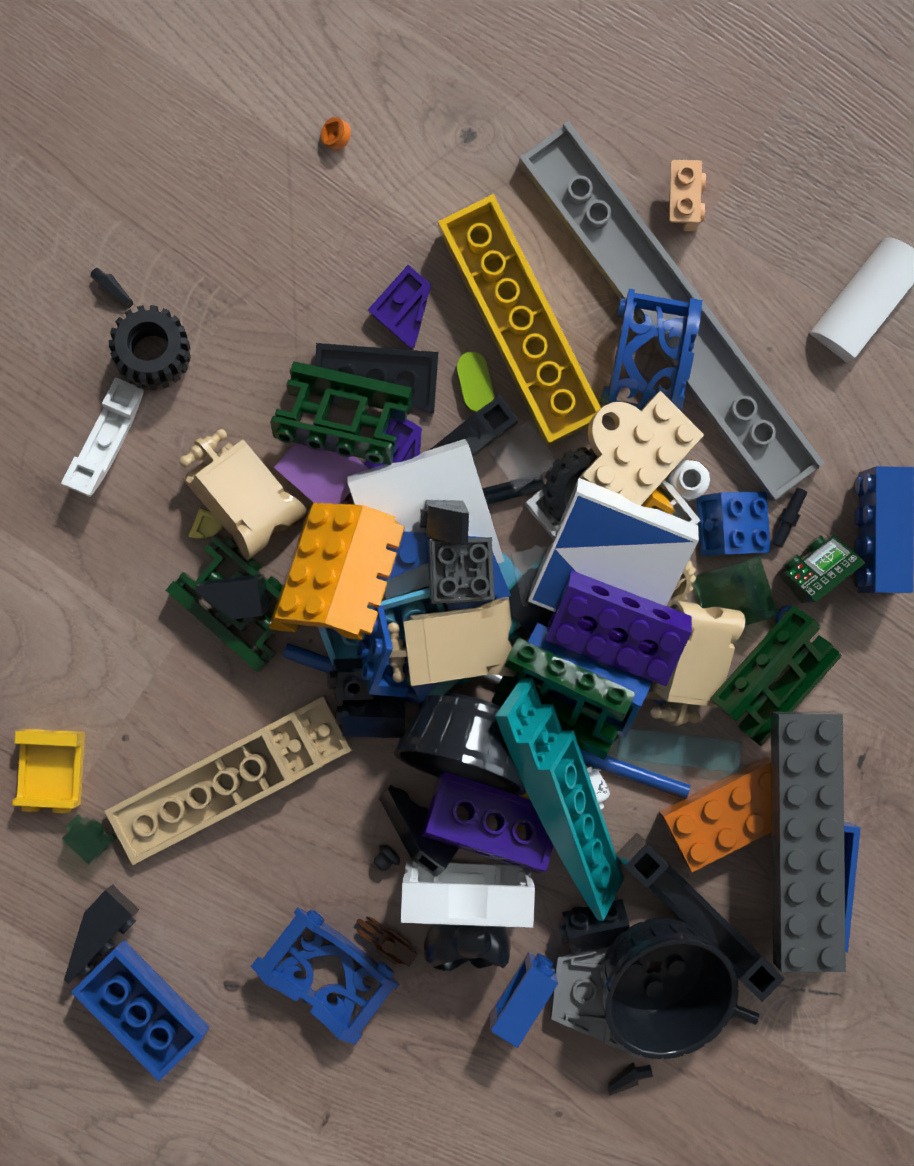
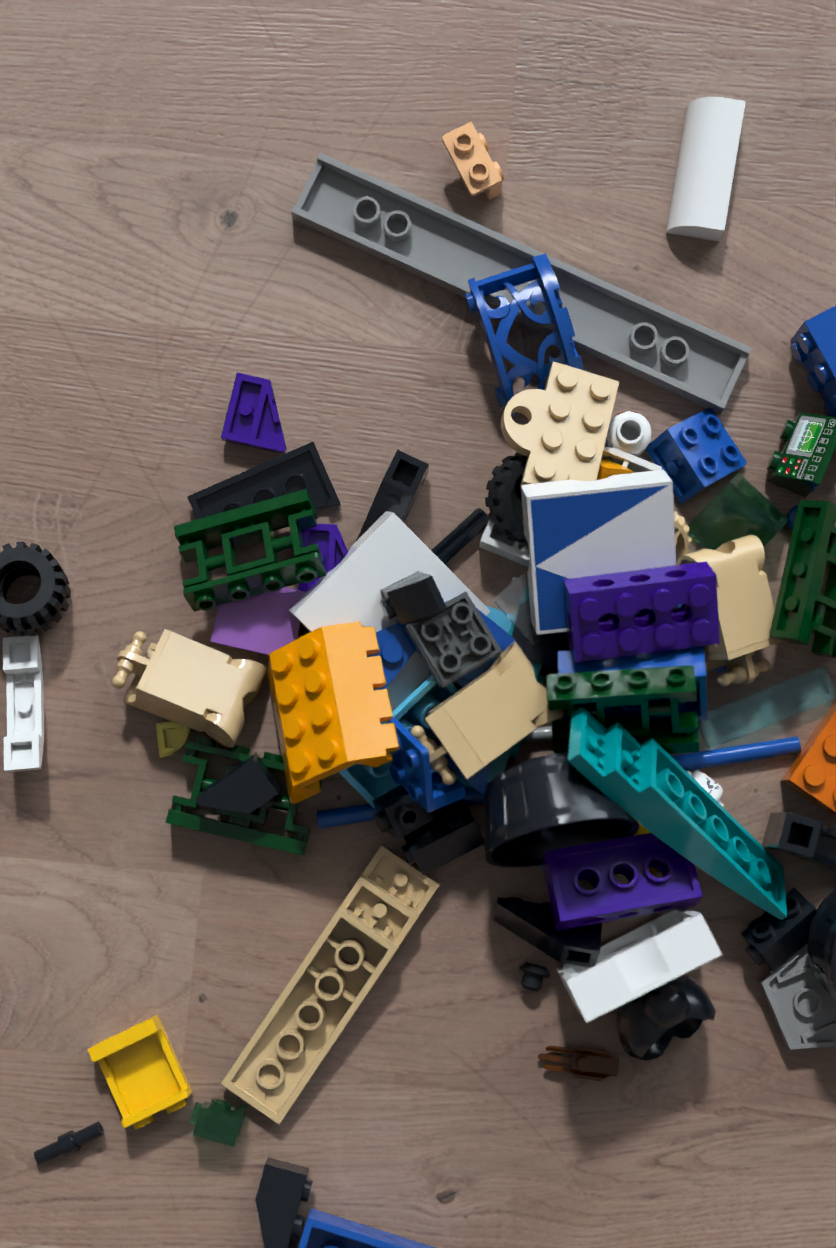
camera: 25 degrees left, 5 degrees down
(333, 1016) = (572, 1164): blue fence -> none
(335, 133) = (97, 284): orange tile -> none
(474, 381) = (364, 451): lime tile -> none
(519, 319) = (377, 368): yellow brick -> none
(522, 456) = (451, 499): clear piece -> none
(523, 998) = (750, 1042): blue window -> none
(789, 517) = (747, 419): black bar -> none

